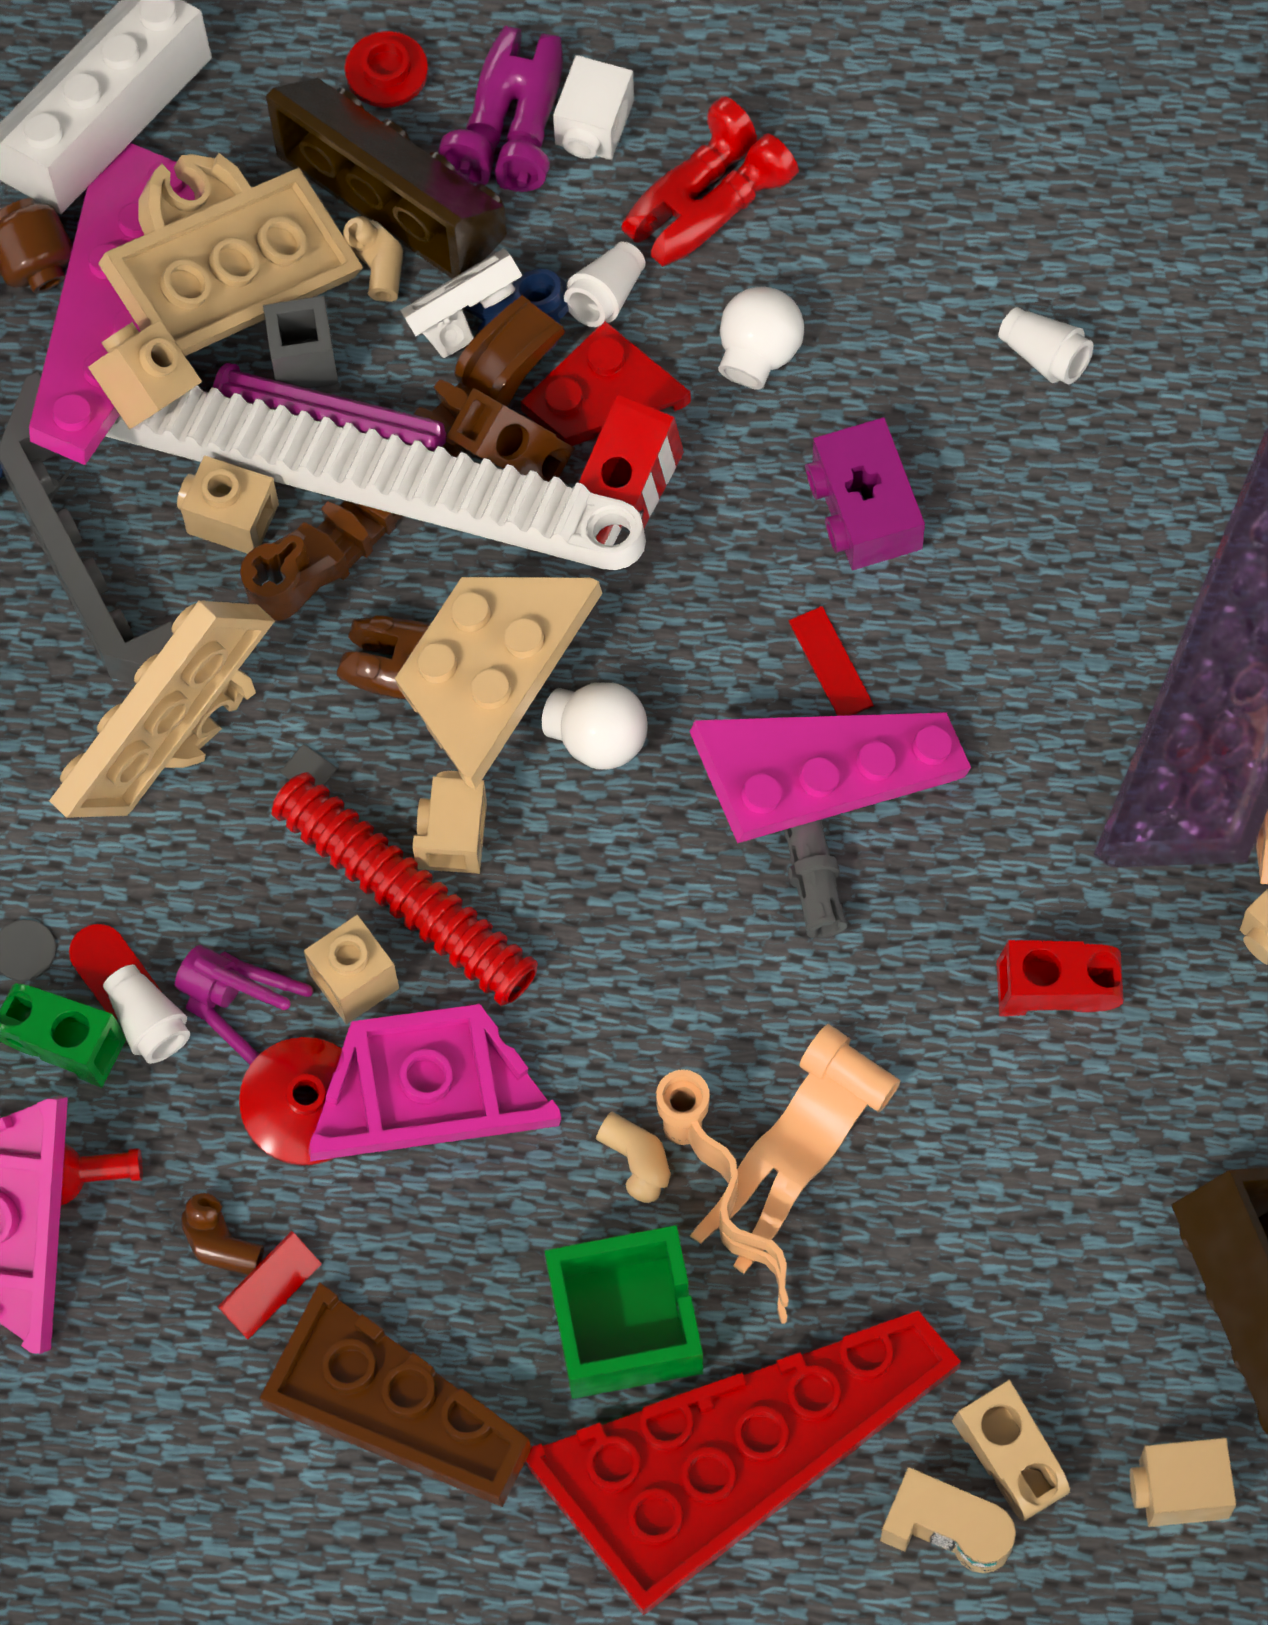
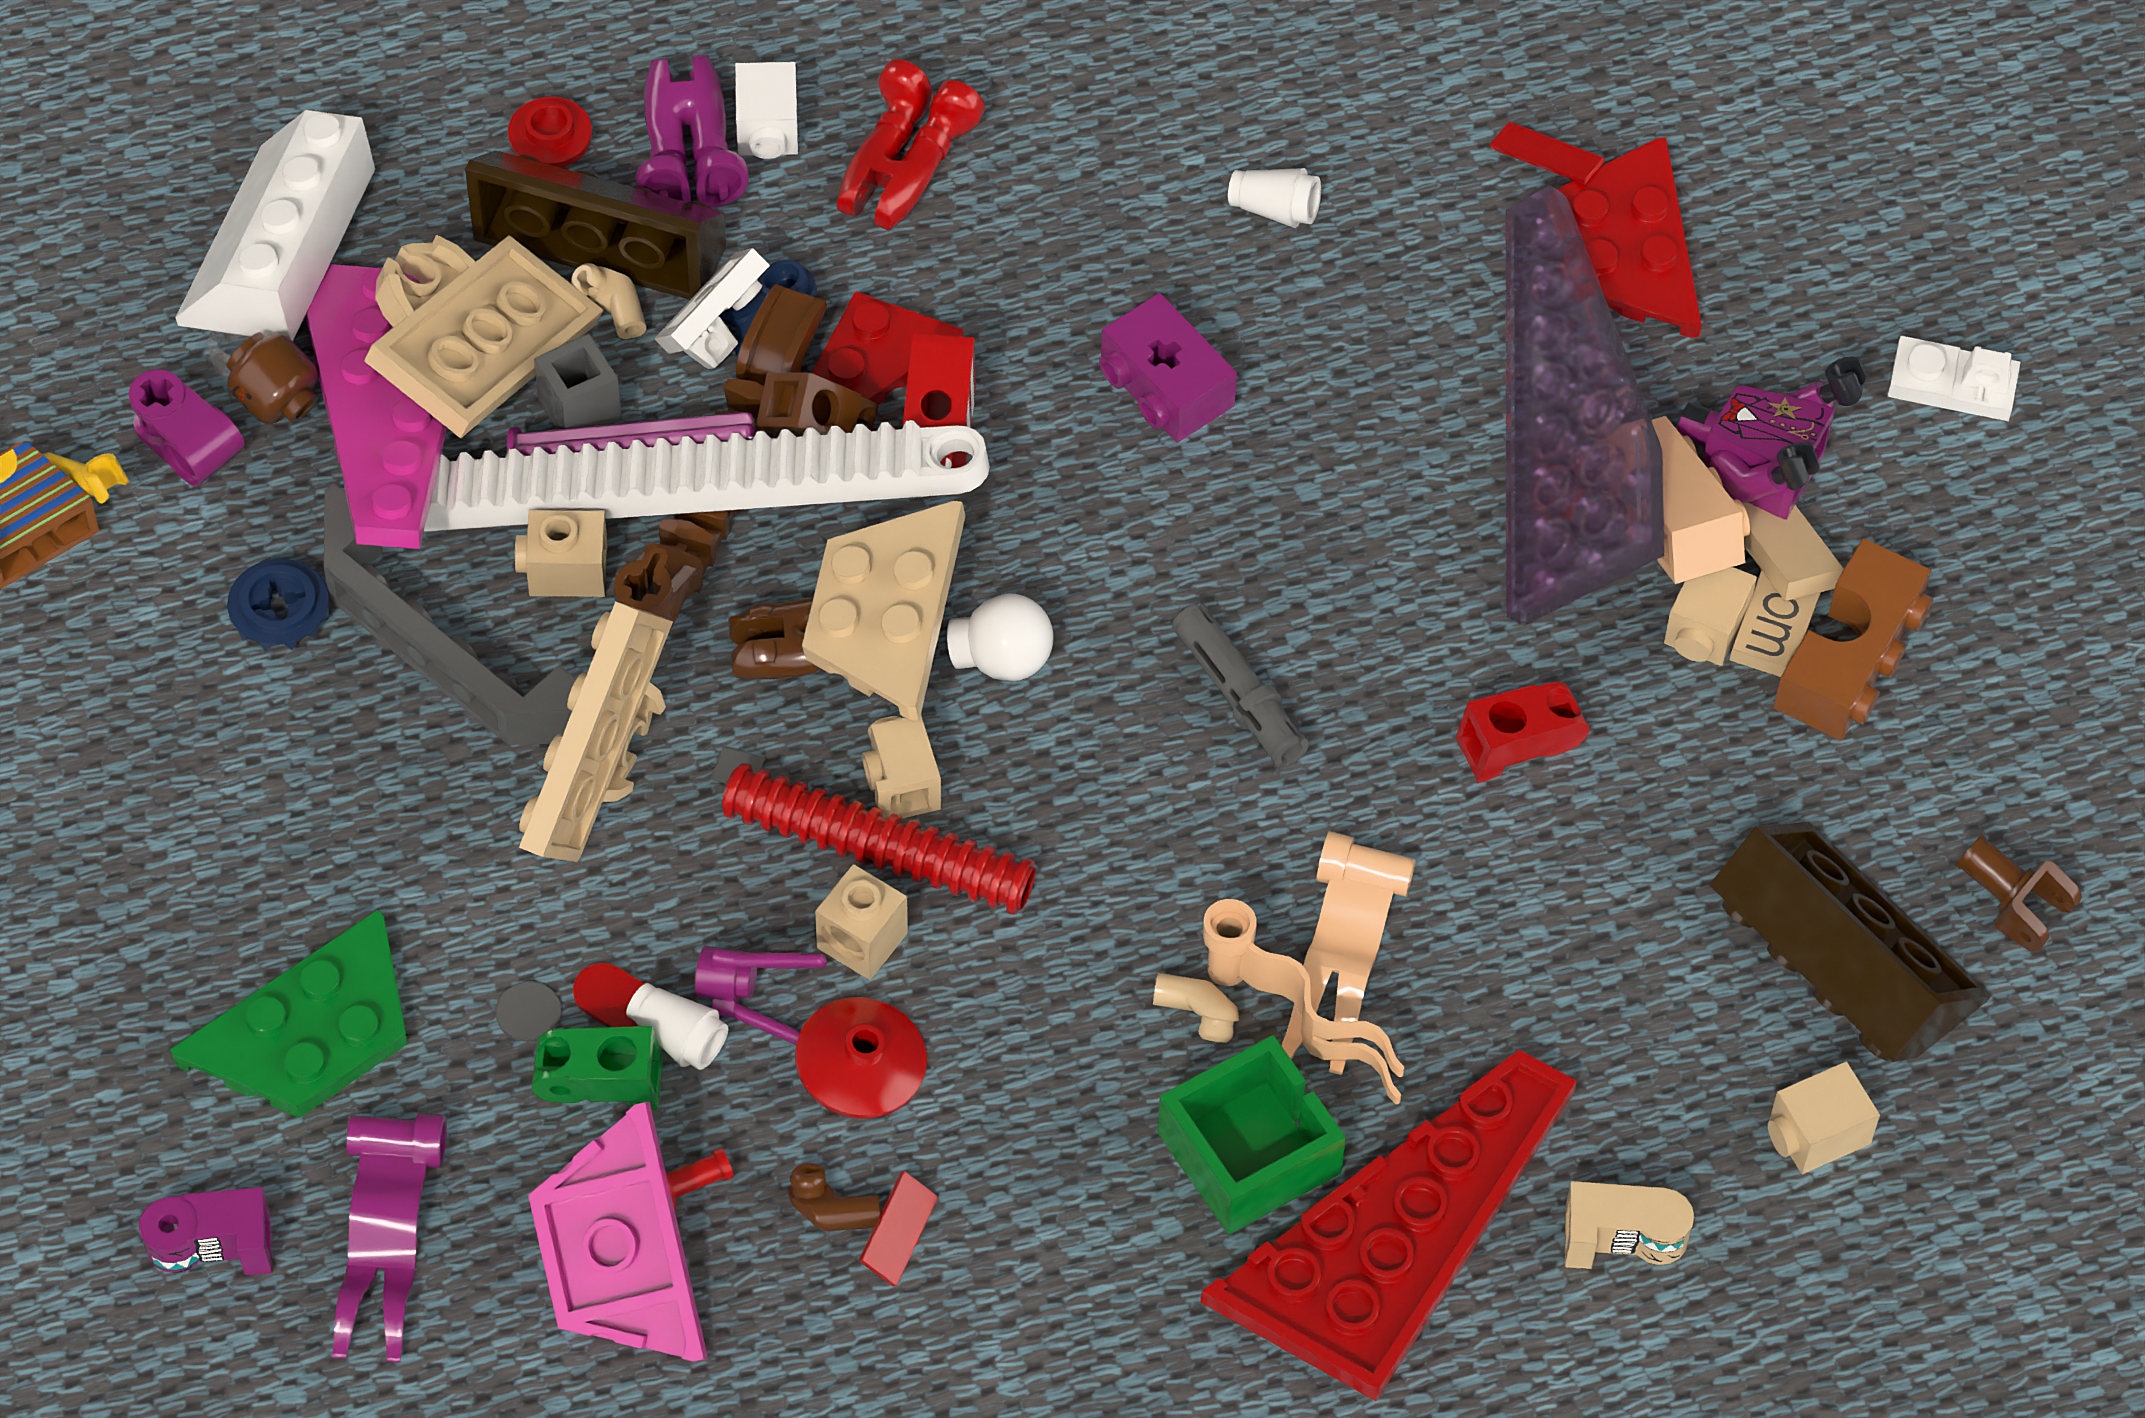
camera: 25 degrees left, 10 degrees down
(143, 371) = (448, 444): tan brick -> none
(378, 1396) = (1045, 1288): reddish brown wing -> none
(426, 1084) = (974, 1002): dark pink wing -> none
(603, 286) = (842, 260): white cone -> none
(760, 334) = (1007, 261): white piece -> none
(813, 768) = (1226, 612): dark pink wing -> none
(830, 662) = (1192, 528): red window -> none
(1012, 1450) = (1654, 1140): tan leg -> none

